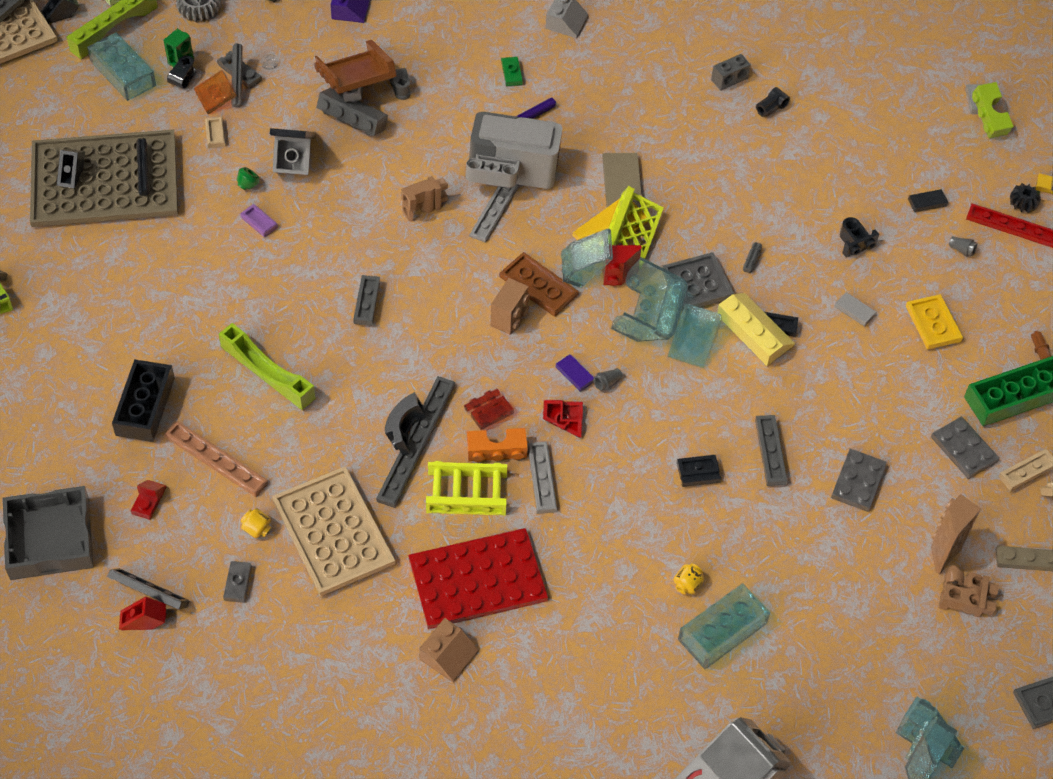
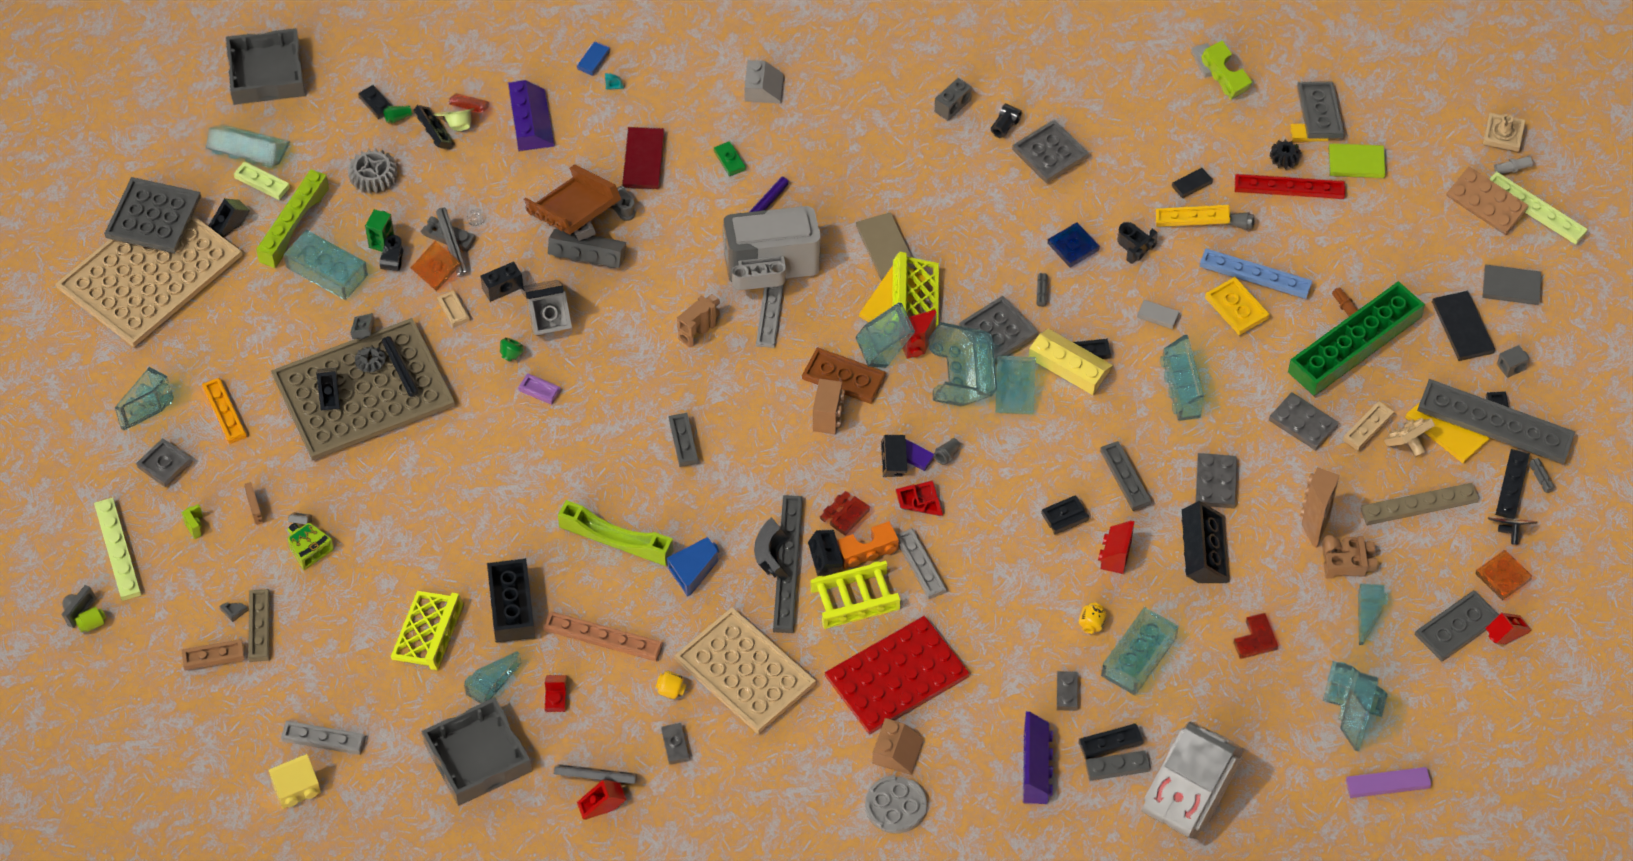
camera: 15 degrees left, 0 degrees up
(69, 411) = (443, 633): none -> neon yellow fence
(94, 467) = (490, 678): none -> clear light blue slope
(121, 158) = (374, 364): none -> dark grey gear
(127, 124) = (362, 326): none -> dark grey plate
(264, 118) = (501, 281): none -> black brick
(327, 415) = (693, 564): none -> blue slope
(425, 708) = (895, 804): none -> light grey tile
(436, 51) = (643, 158): none -> dark red tile
(453, 440) = (825, 552): none -> black brick
(555, 368) = (893, 455): none -> black hinge
(579, 706) = (1036, 760): none -> dark purple slope
(638, 644) = (1066, 690): none -> flat silver plate
(661, 736) = (1117, 765): none -> dark grey plate
(663, 709) = (1110, 741): none -> black plate
(737, 517) = (1117, 547): none -> red slope
(796, 225) = (1073, 244): none -> clear blue plate
(804, 139) = (1050, 151): none -> flat silver plate
(826, 539) = (1205, 544): none -> black slope
(851, 651) = (1261, 638): none -> clear red plate
(857, 375) = (1182, 379): none -> clear light blue slope
(918, 229) = (1192, 215): none -> yellow tile
(962, 297) = (1256, 273): none -> medium blue plate
(976, 648) = (1370, 606): none -> clear light blue slope

